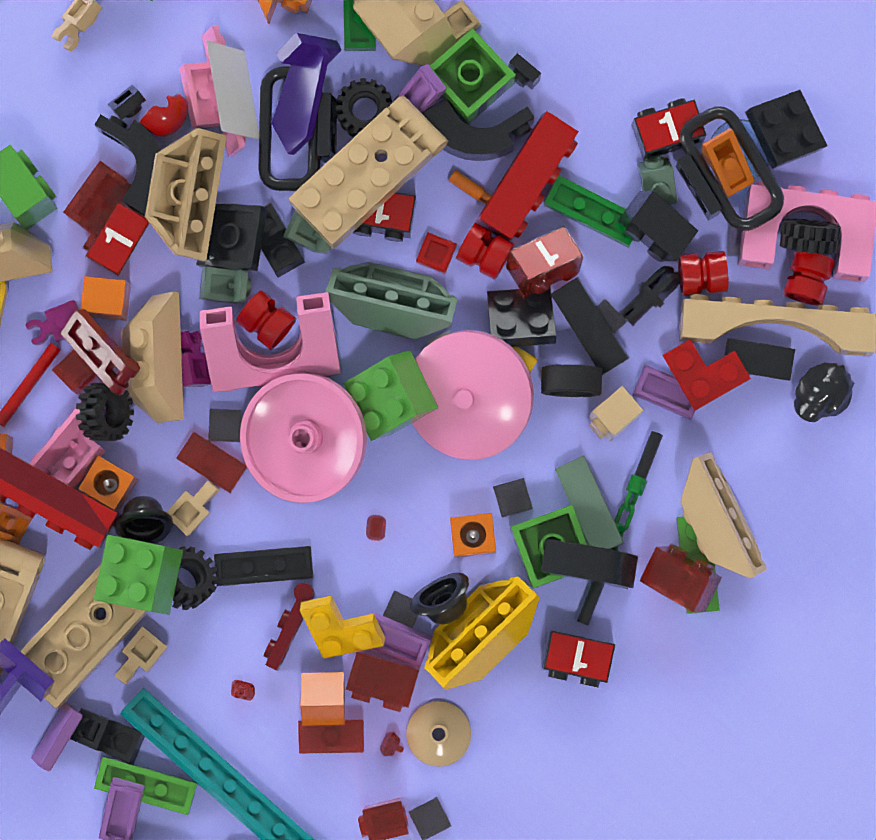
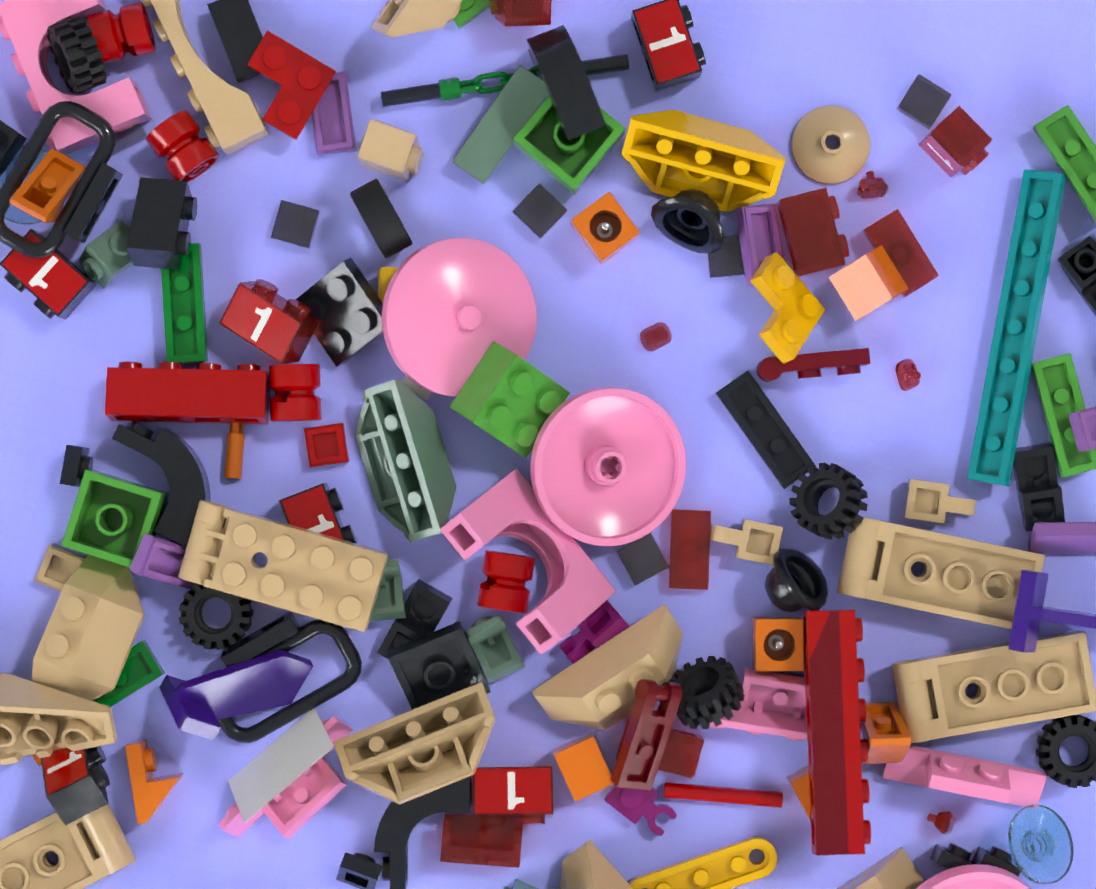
camera: 120 degrees left, 5 degrees up
(138, 574) = (859, 548): bright green brick -> none
(166, 120) = (351, 818): red hair -> none
(590, 325) = (309, 234): black tile -> none
(651, 294) = (237, 190): black arm -> none

